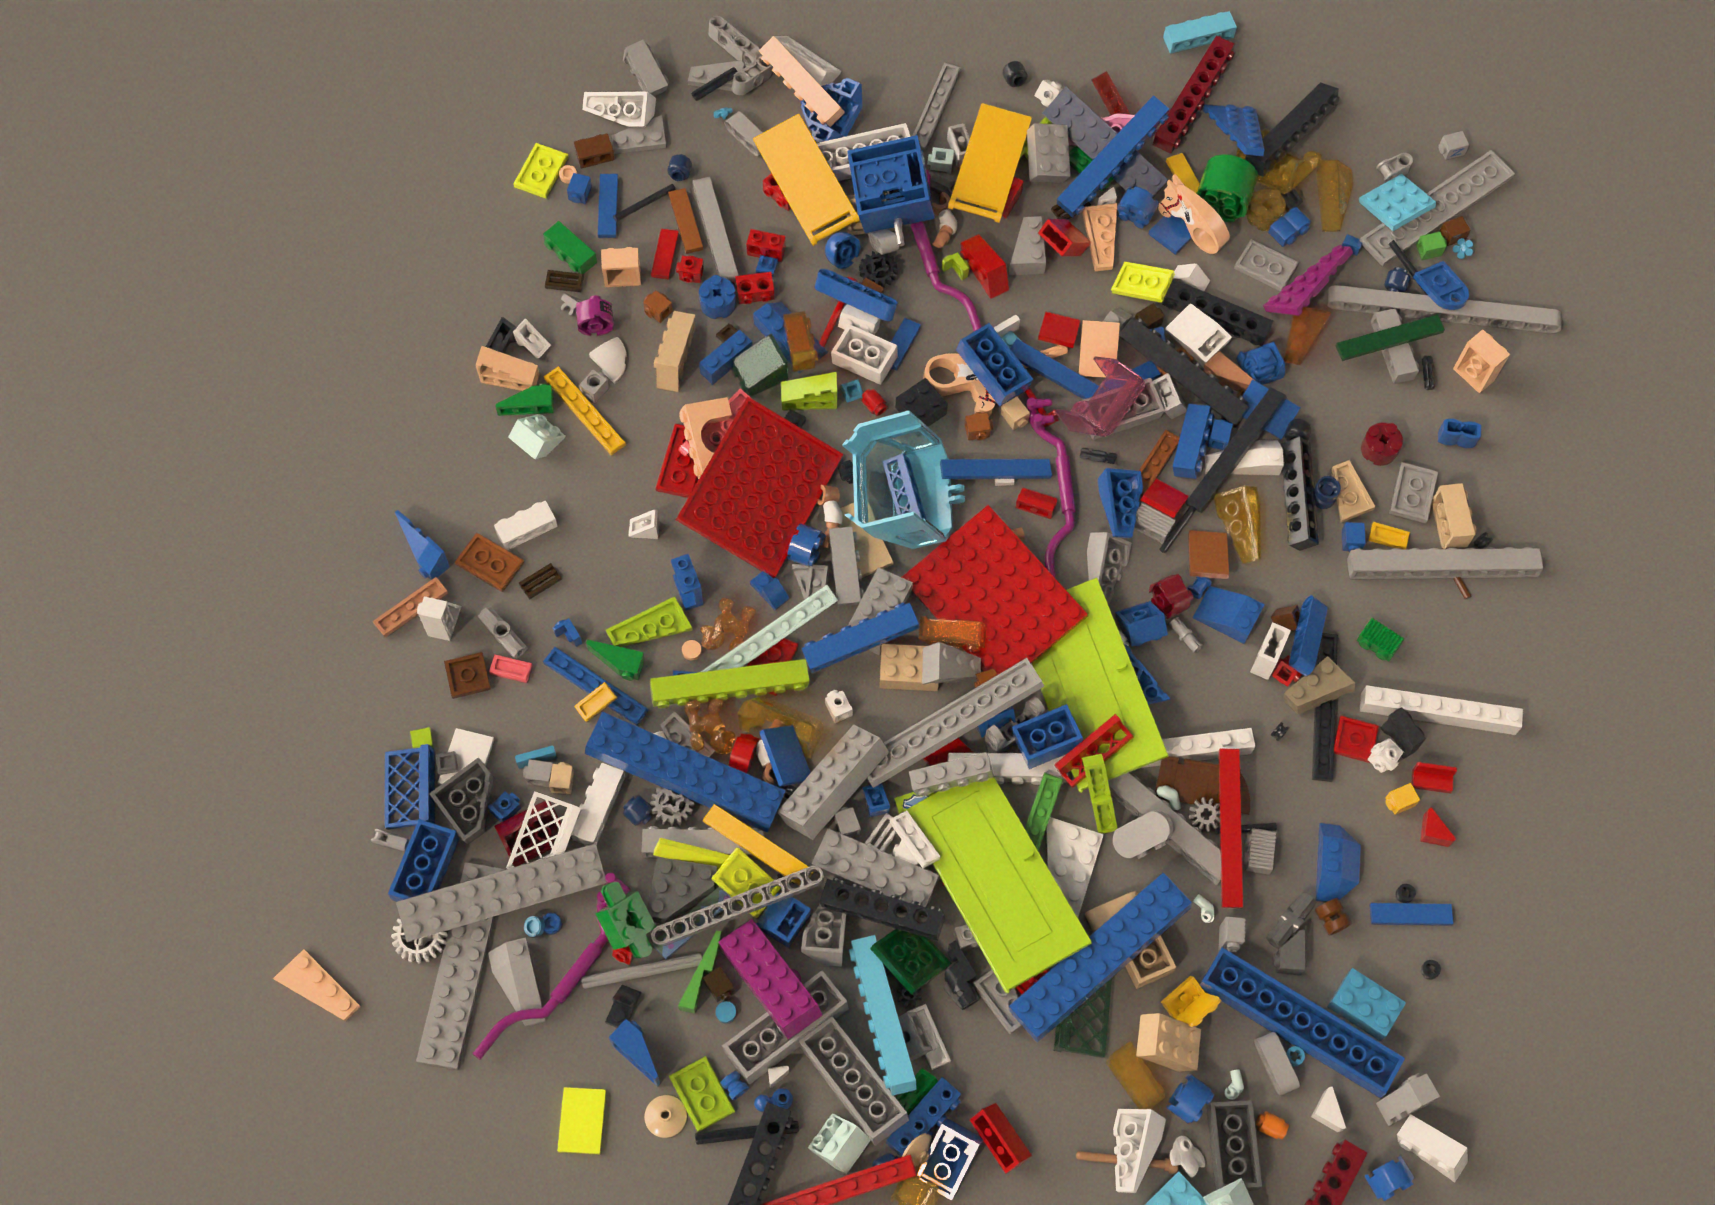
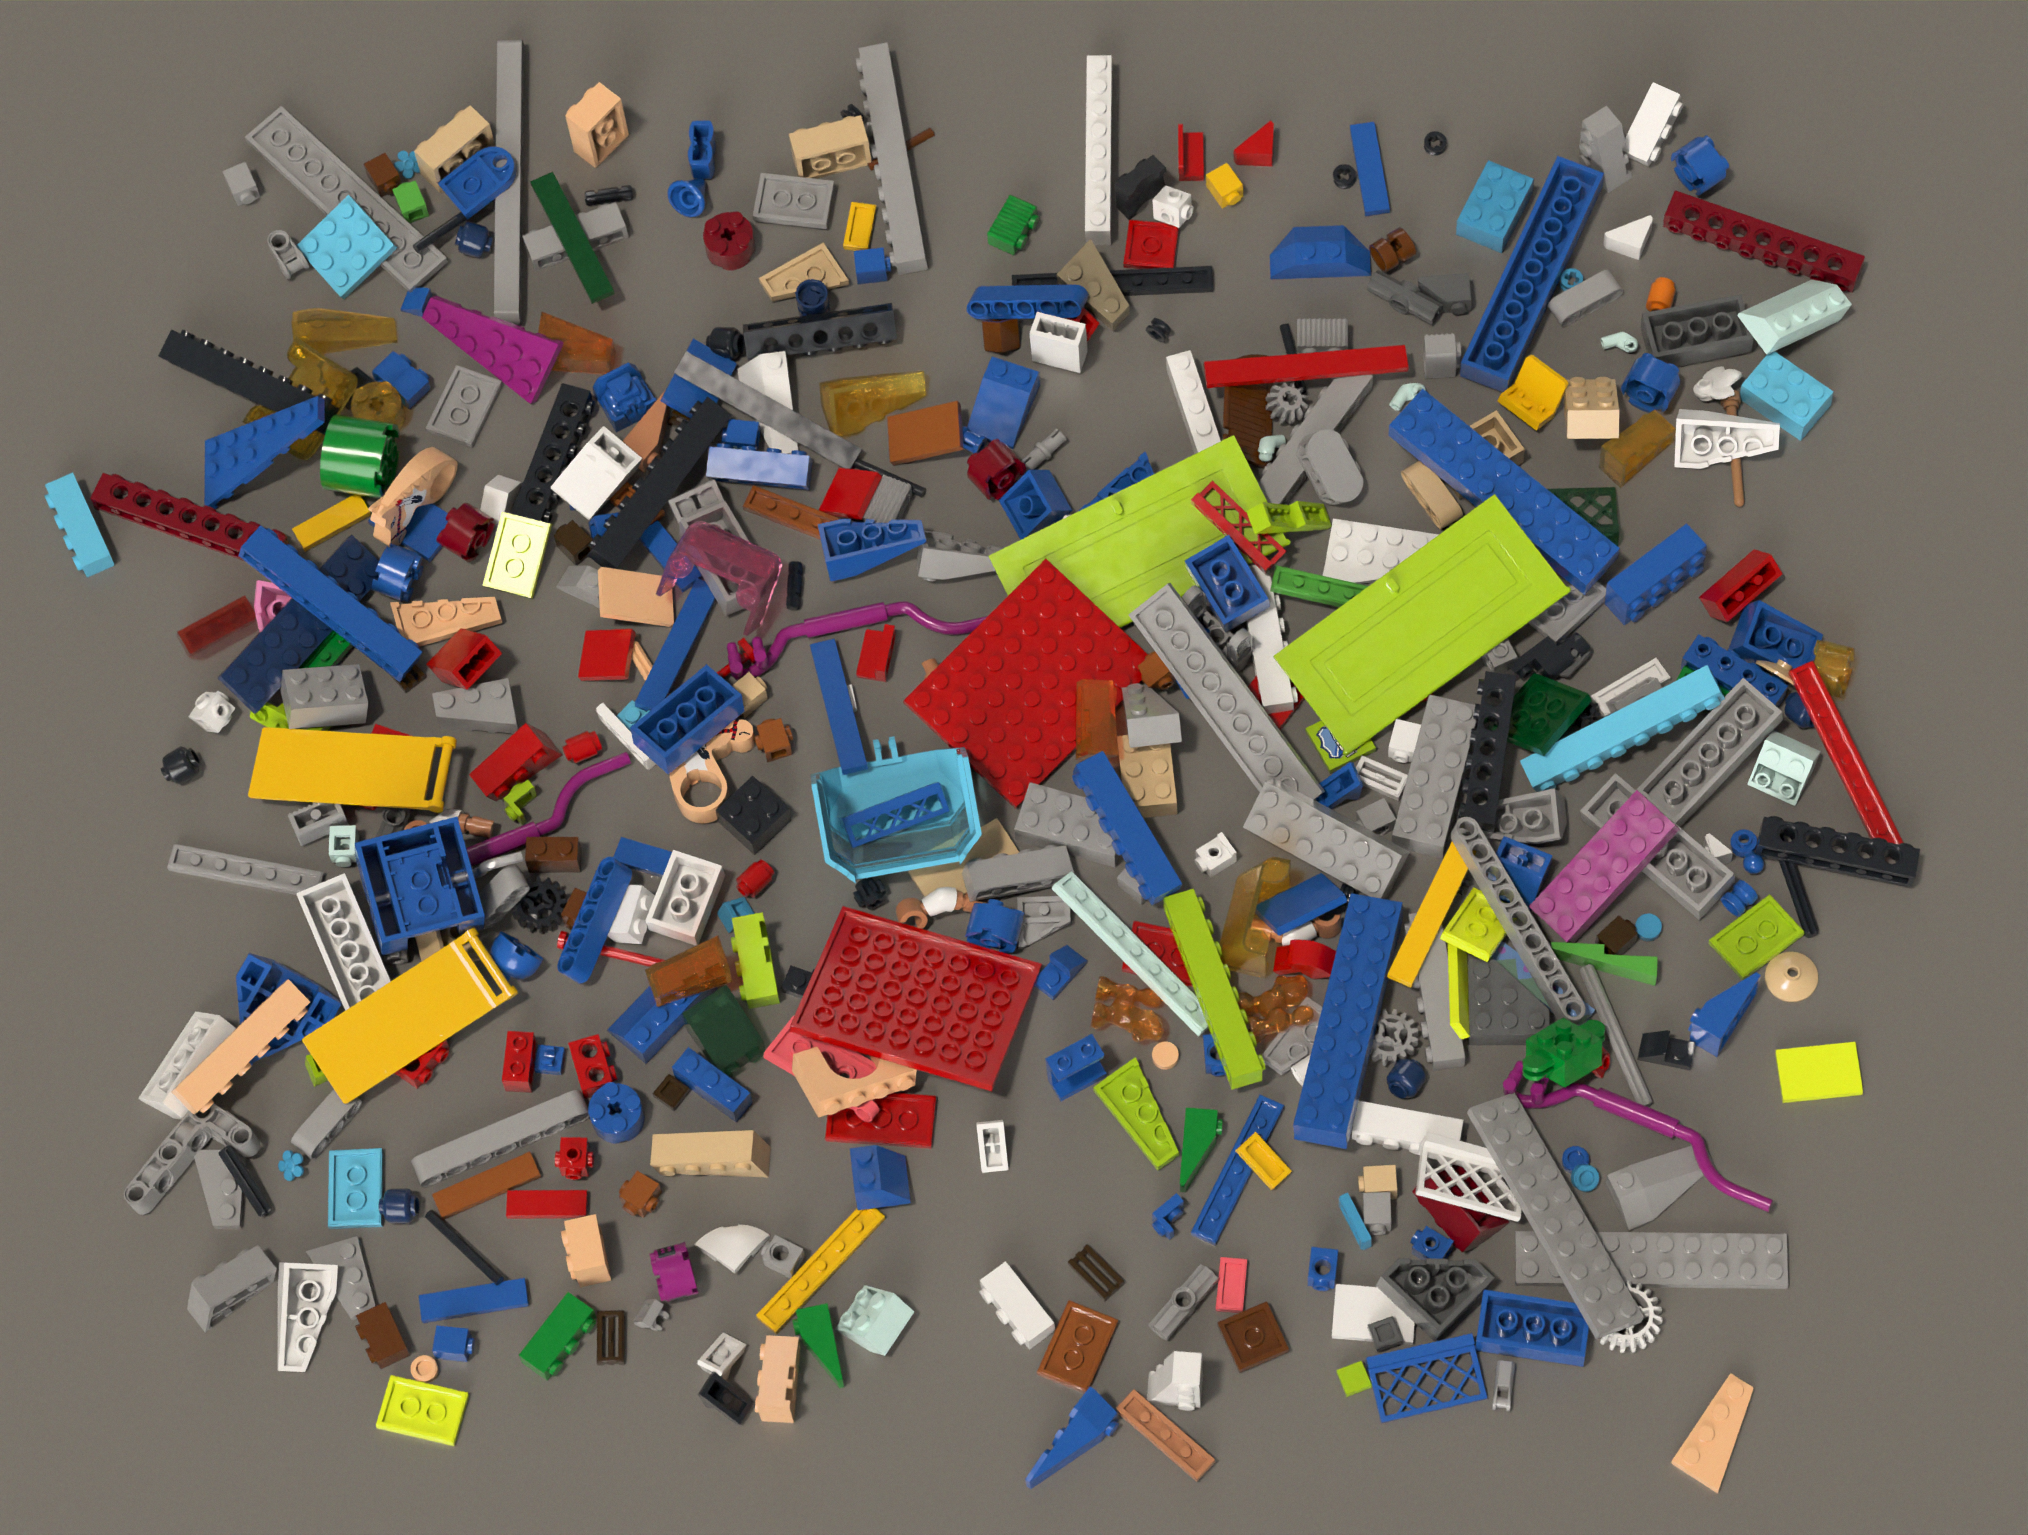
camera: 90 degrees left, 0 degrees up
(510, 736) = (1318, 1258): none -> blue brick
(636, 449) = (879, 1177): none -> blue slope
(701, 147) = (355, 1188): none -> medium azure tile
(912, 280) = (553, 854): none -> reddish brown brick
(914, 839) = (1387, 729): white tile -> none
(951, 774) = (1297, 692): light grey brick -> none
(991, 307) = (582, 746): none -> red brick
(1017, 1069) = (1655, 575): none -> blue brick
(1108, 197) = (383, 611): white slope -> none
(1163, 250) = (466, 531): none -> dark red brick
(1423, 423) = (687, 196): none -> blue hat
(1472, 271) = (453, 145): none -> tan brick

